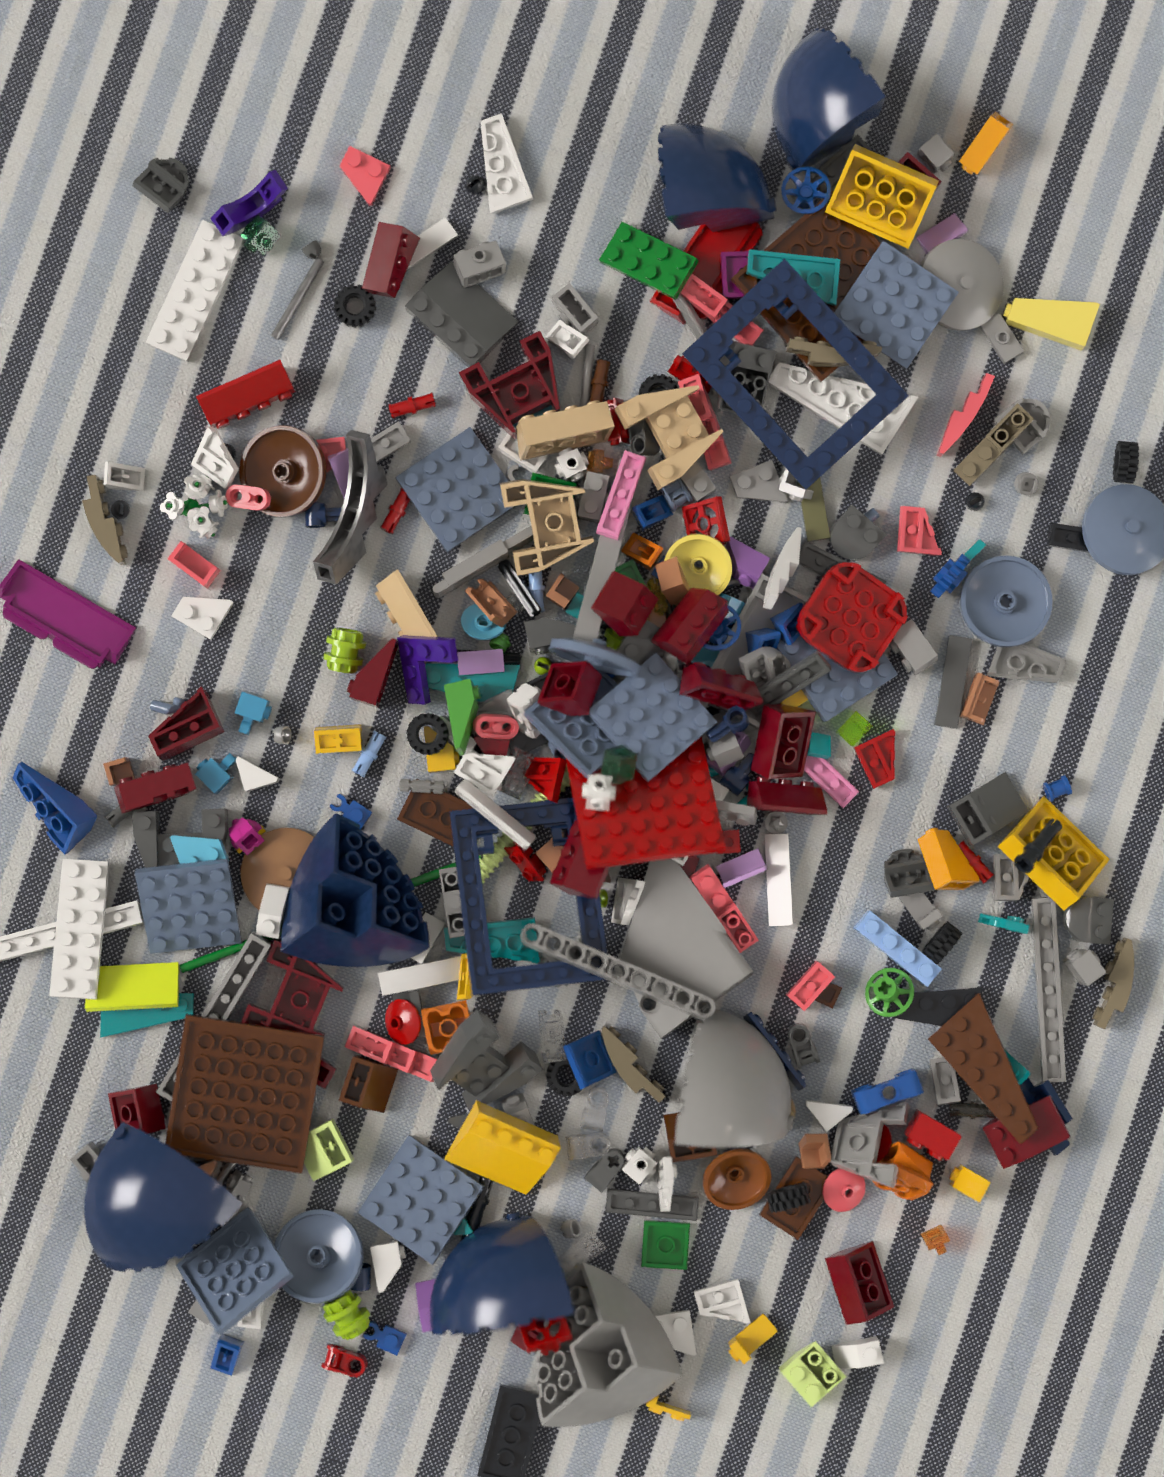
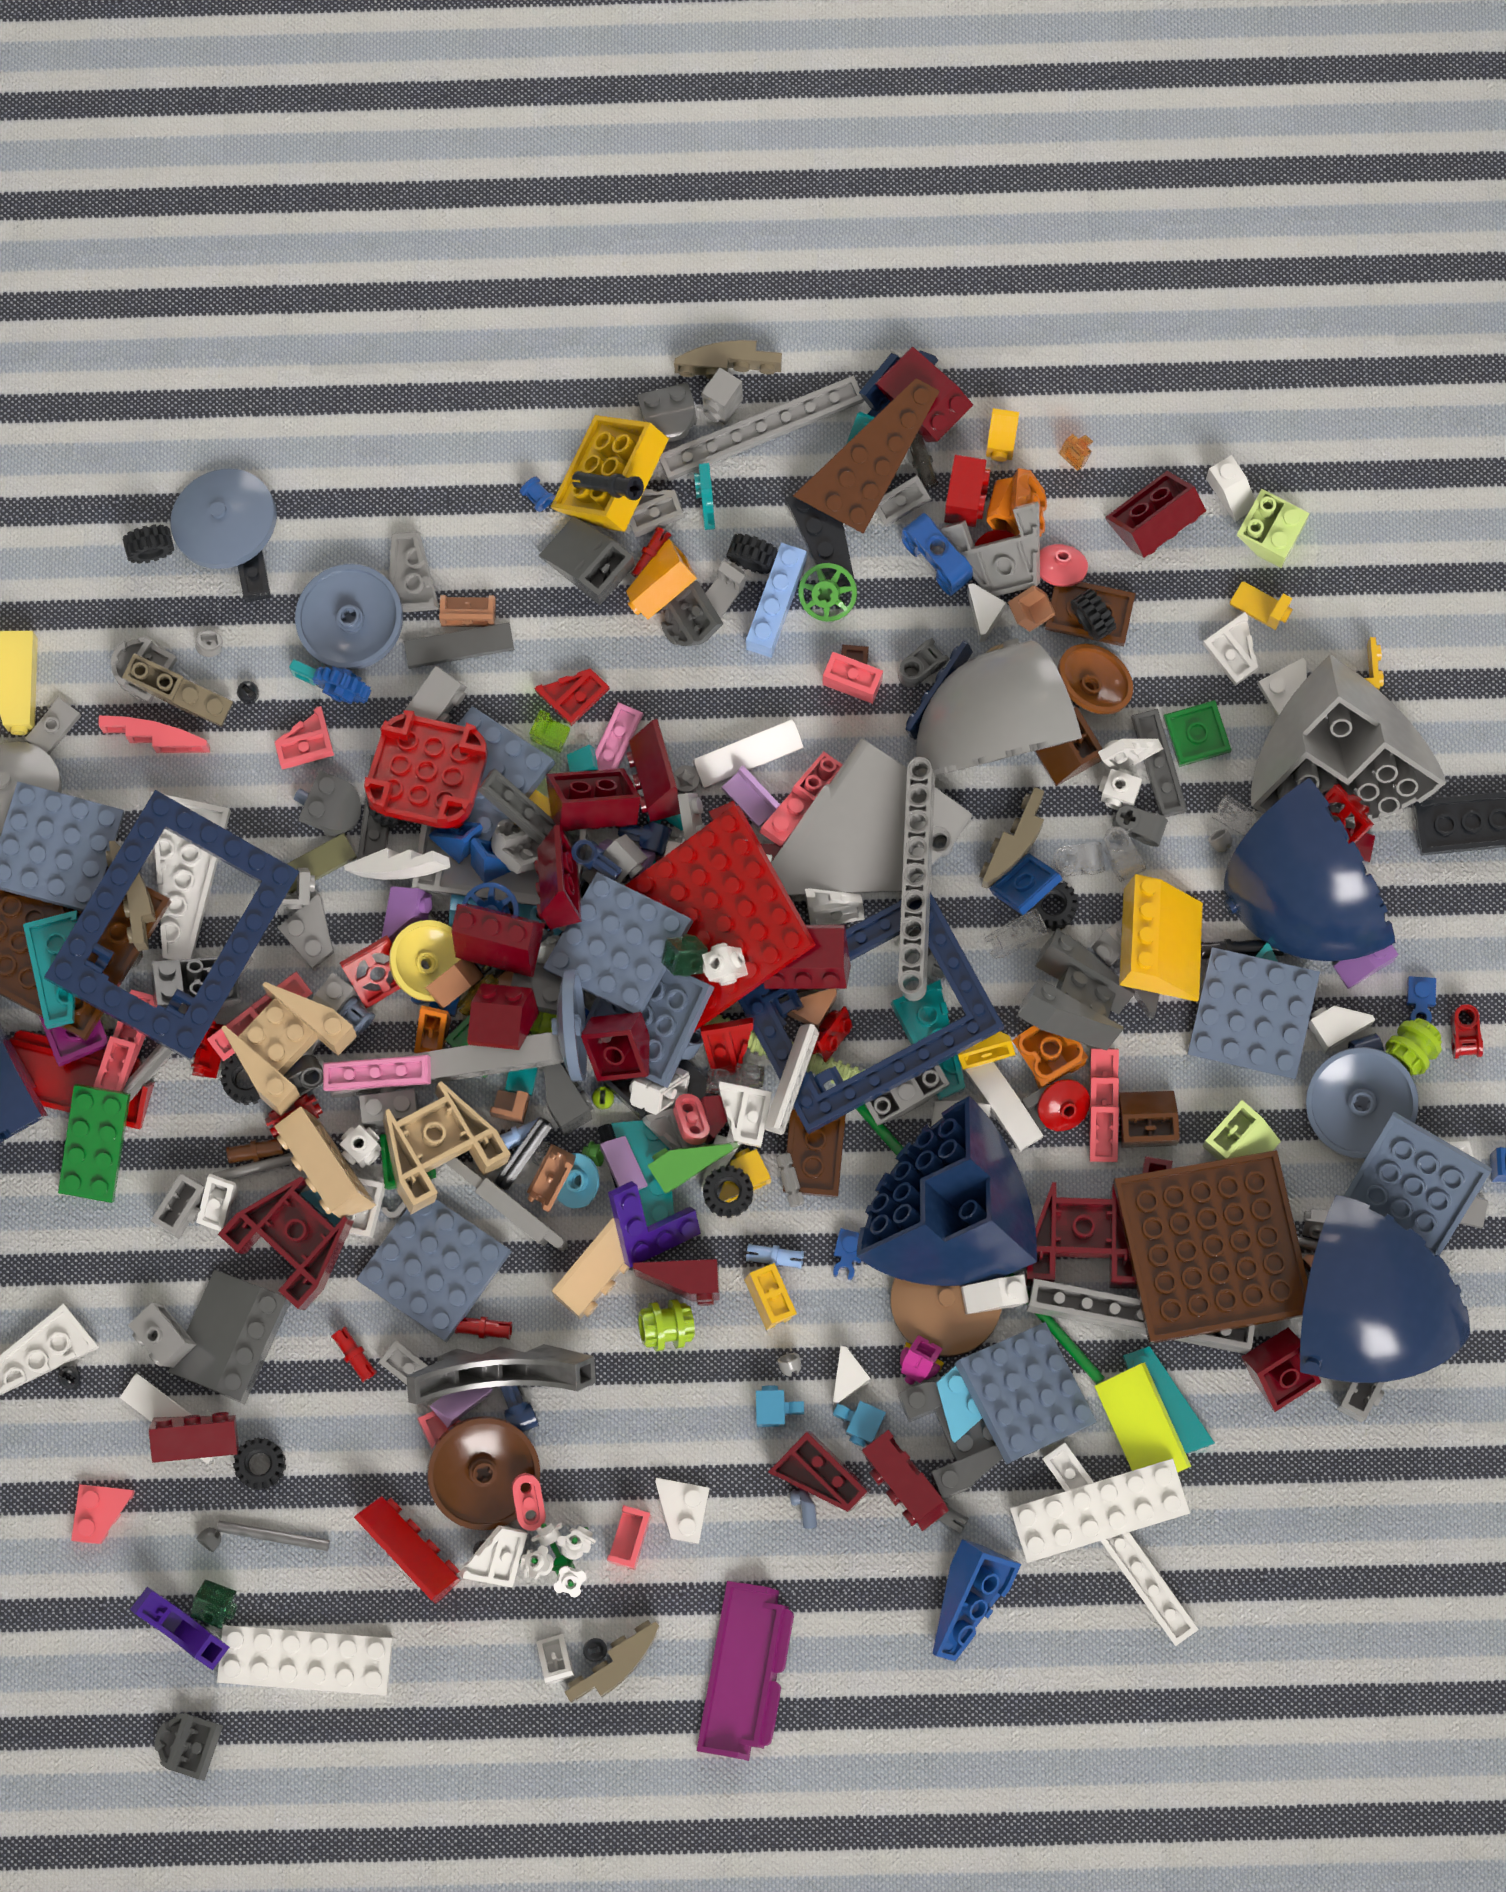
camera: 105 degrees left, 10 degrees down
(118, 770) = (901, 1535): nougat panel -> none
(598, 462) = (346, 1117): clear orange tile -> none
(651, 512) = (384, 1038): blue slope -> none

